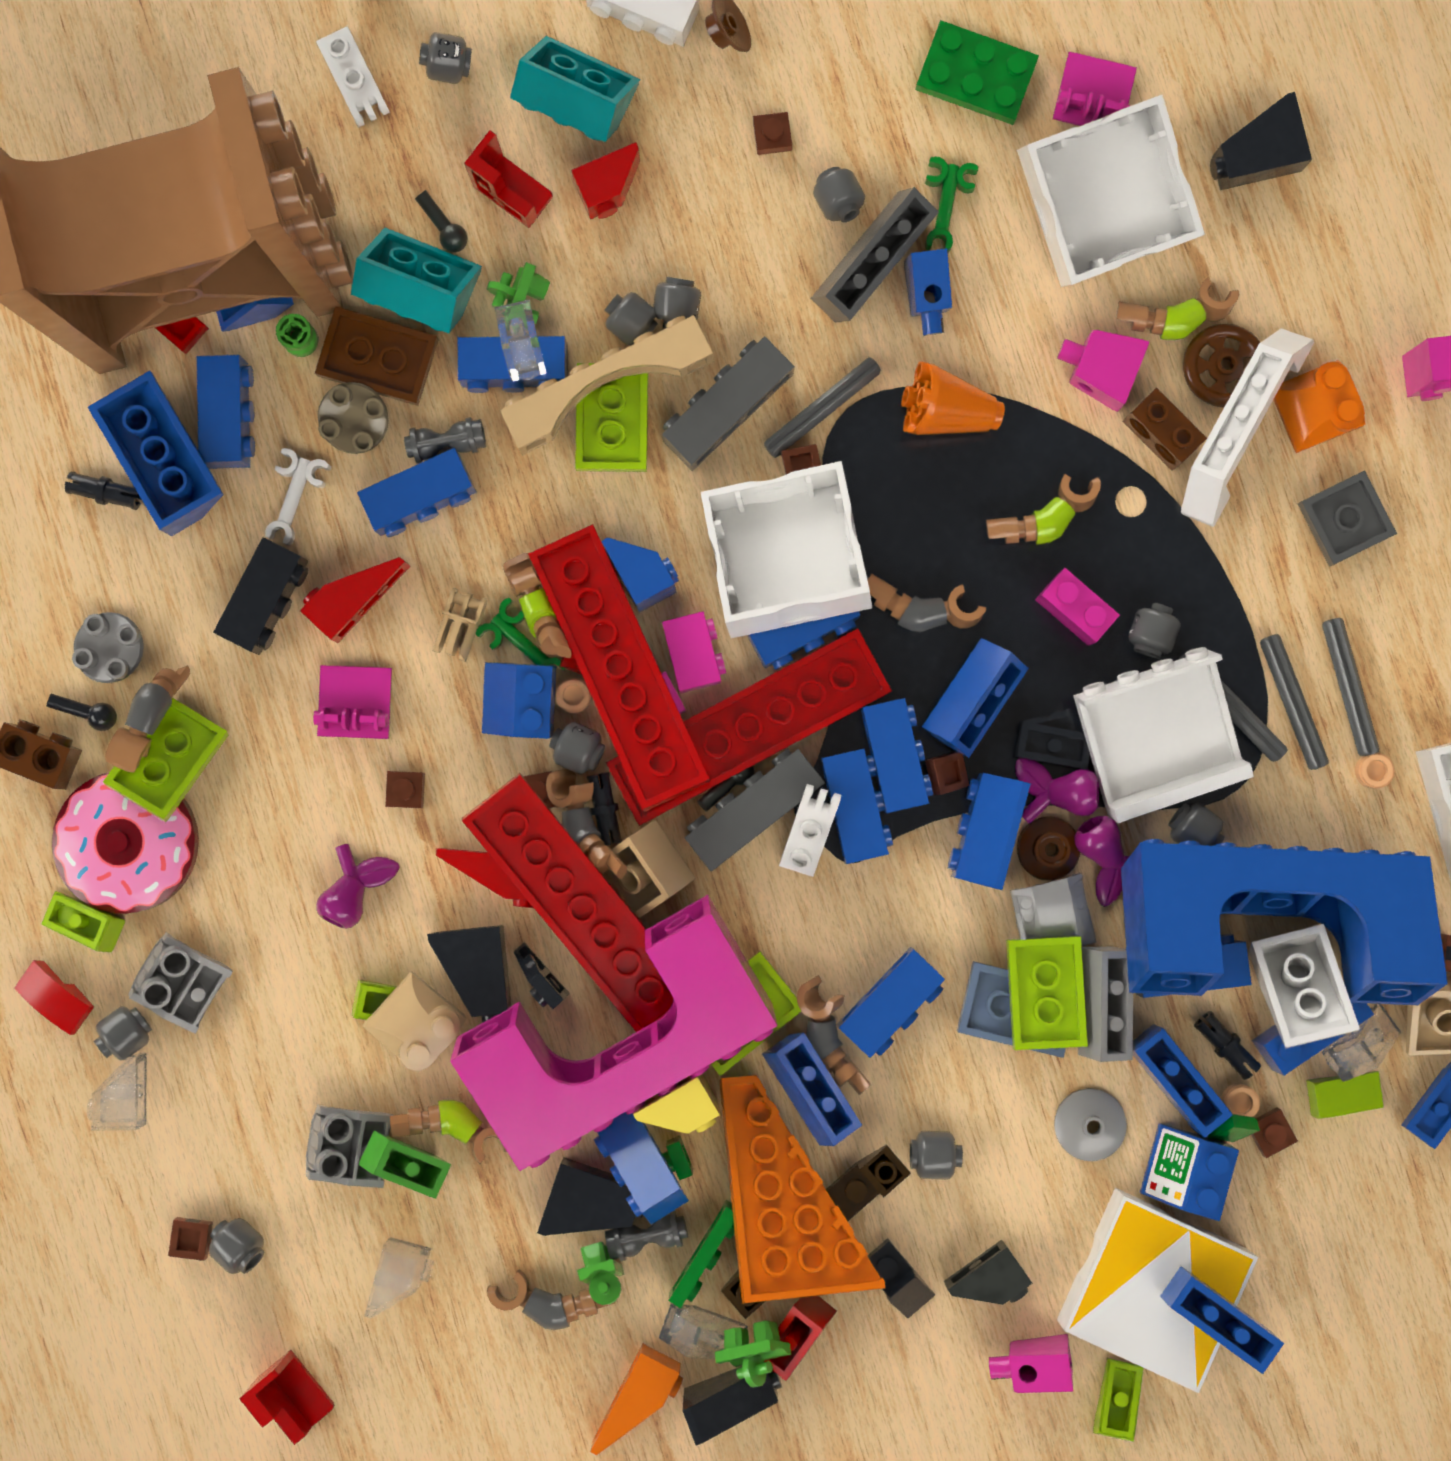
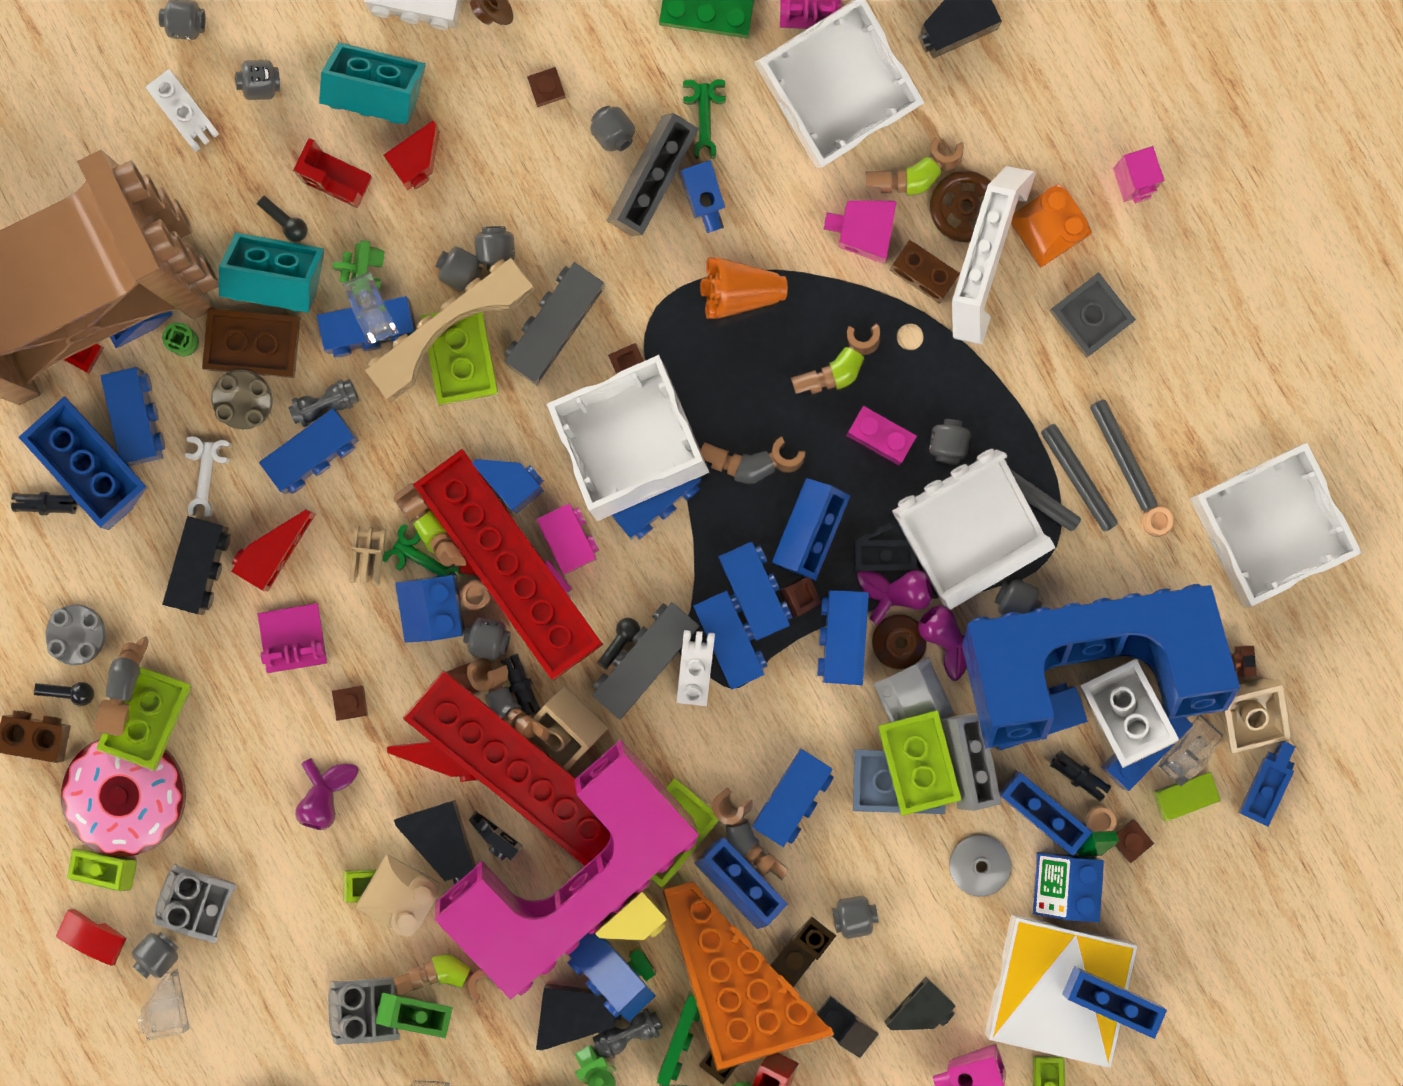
camera: 15 degrees left, 0 degrees up
(773, 715) = (646, 577): red plate -> none
(822, 407) = (635, 310): dark grey axle -> none

